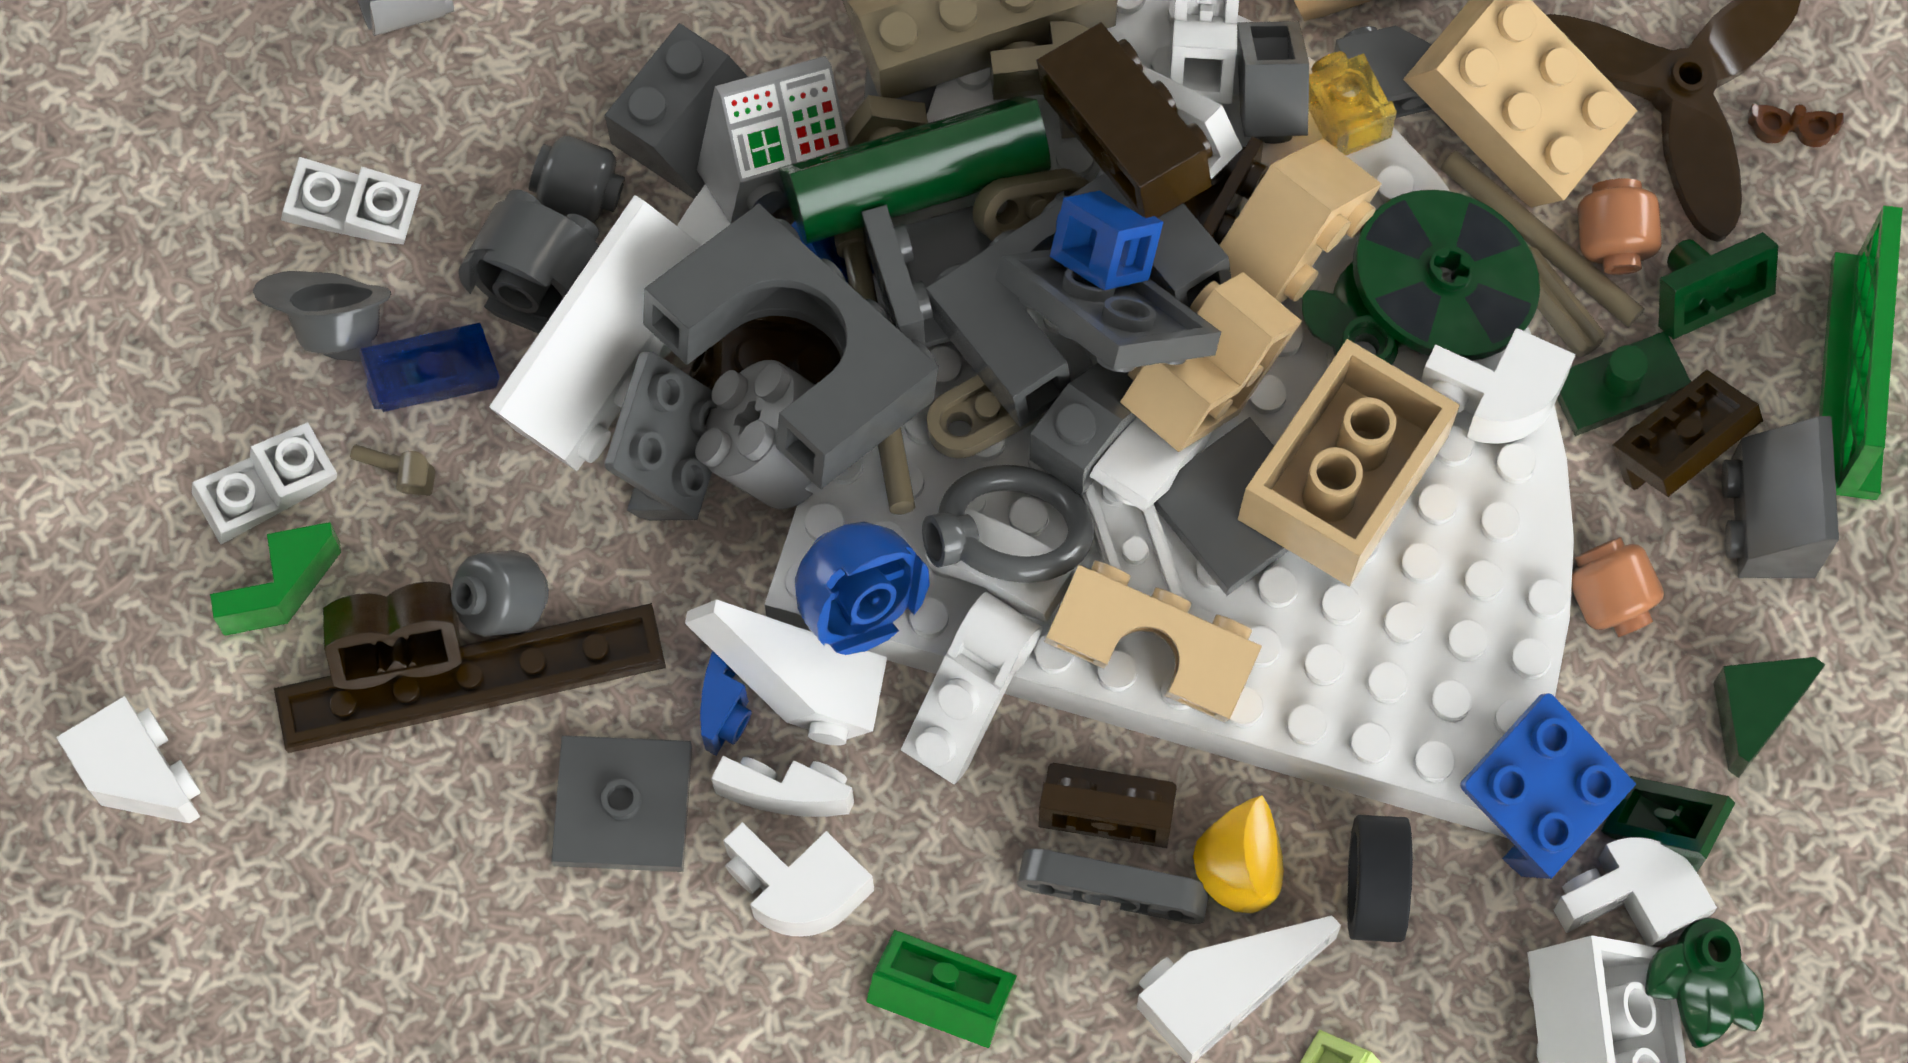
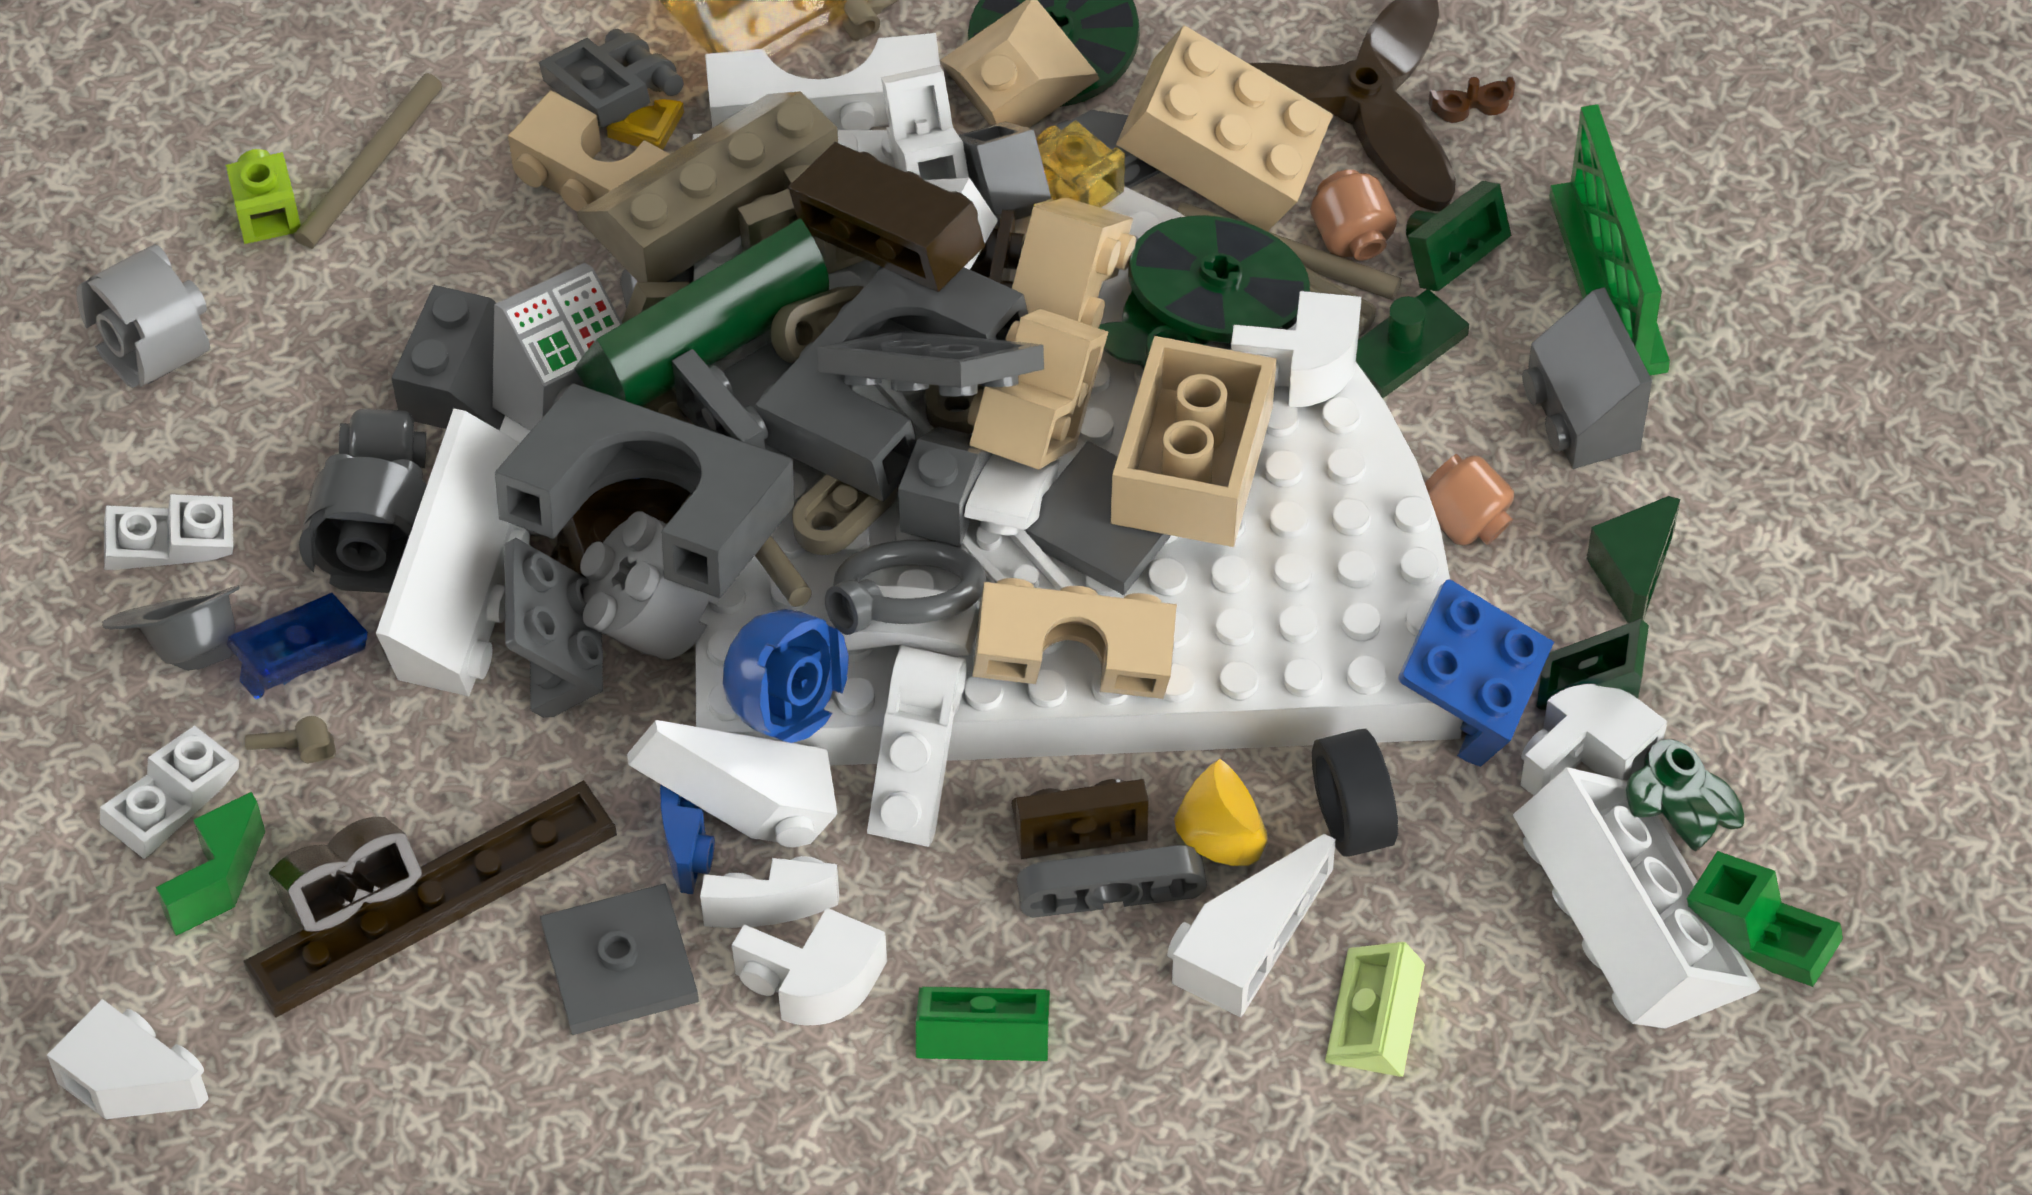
camera: 20 degrees left, 15 degrees down
(499, 593) = (437, 806): dark grey head -> none
(1105, 240) = (907, 308): blue brick -> none
(1685, 434) = (1479, 357): dark brown bracket -> none

